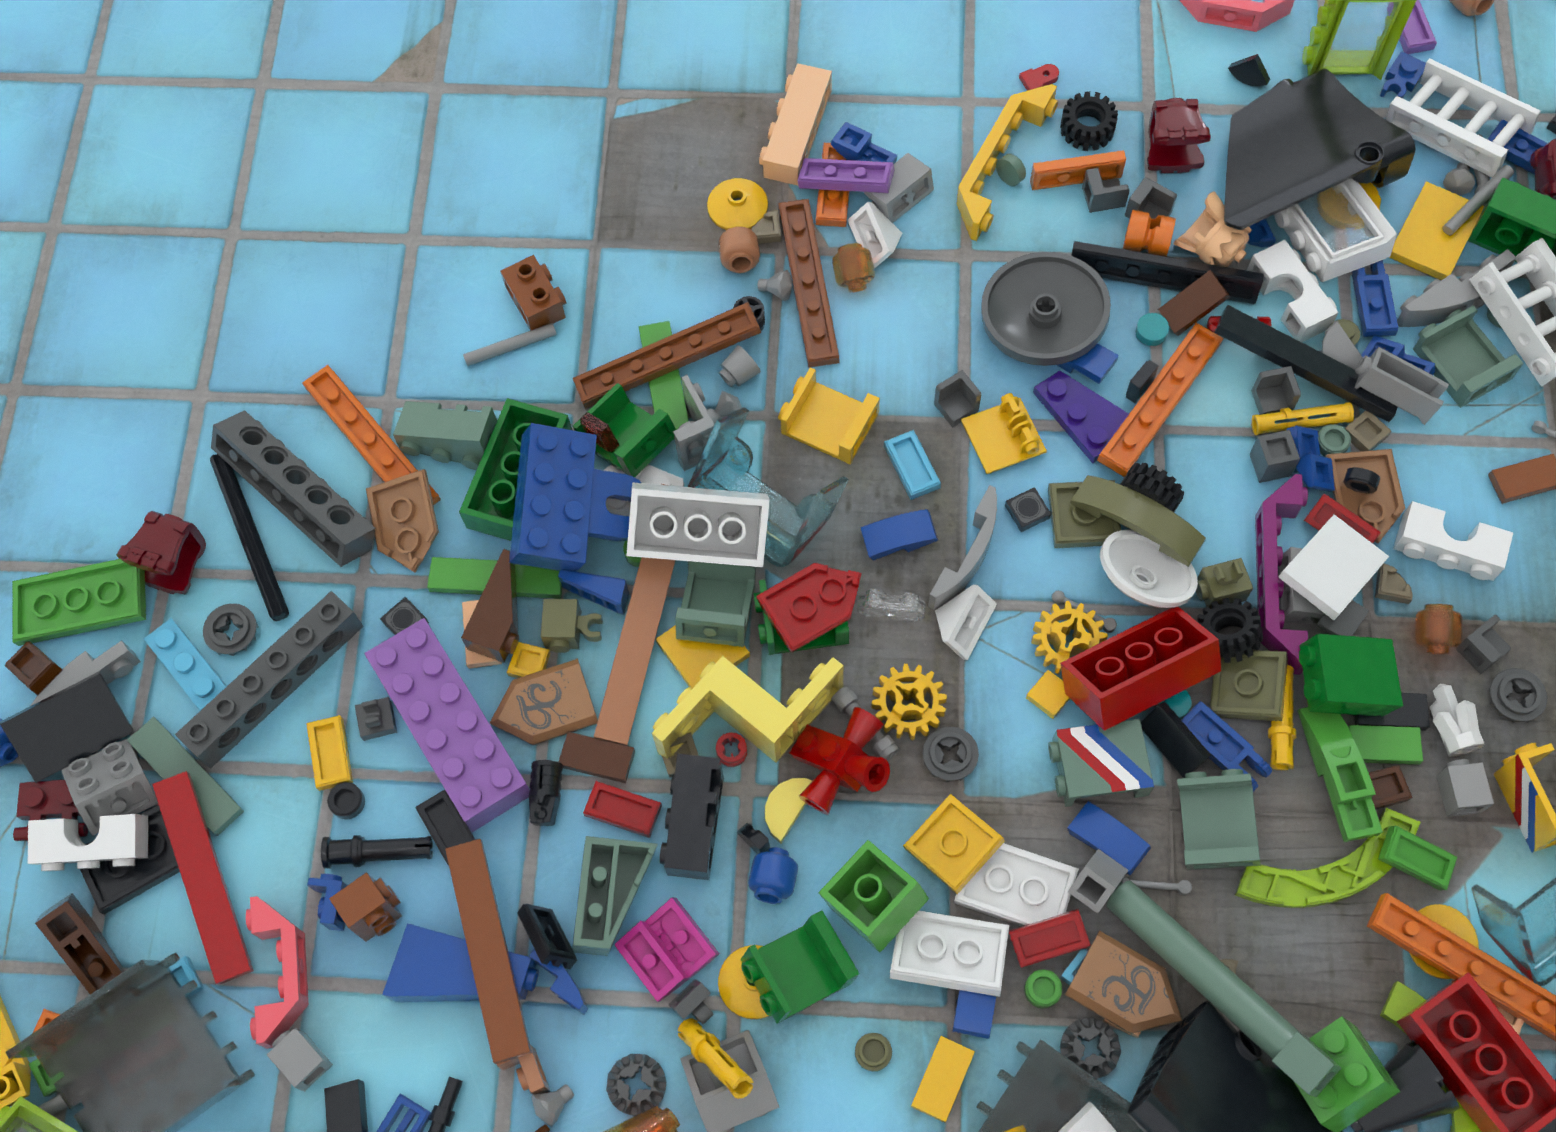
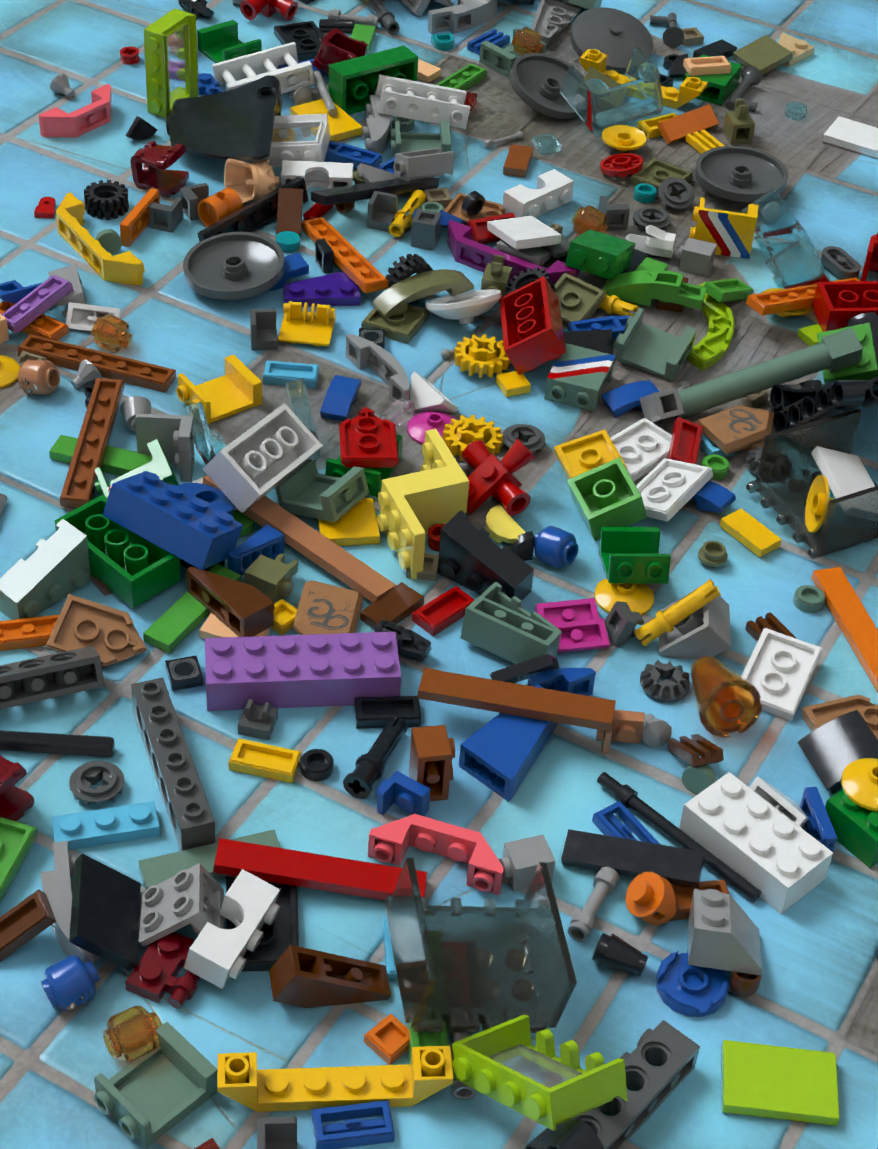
camera: 70 degrees left, 25 degrees down
(899, 649) = (427, 421): none -> dark pink dish
(1506, 46) = (222, 42): none -> green panel

